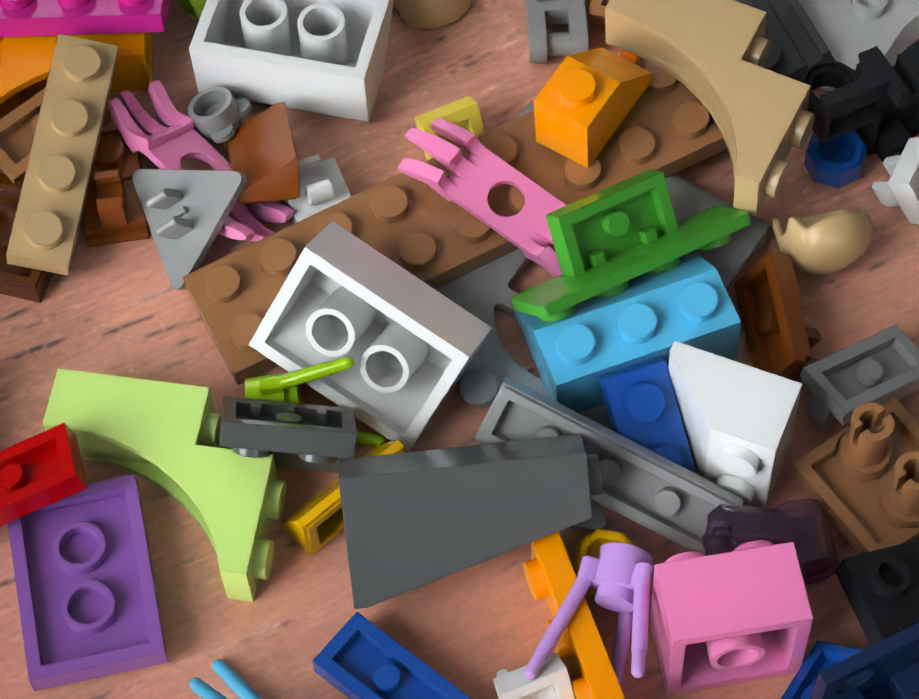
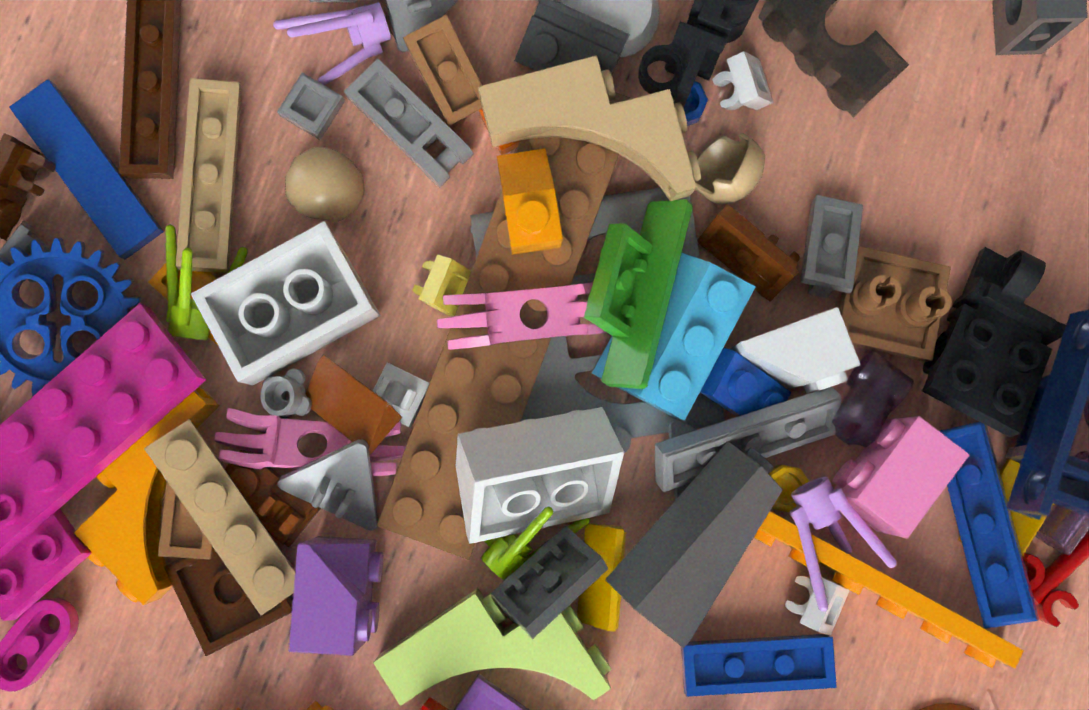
camera: 50 degrees left, 25 degrees up
(86, 285) = (334, 595): none -> medium lavender slope

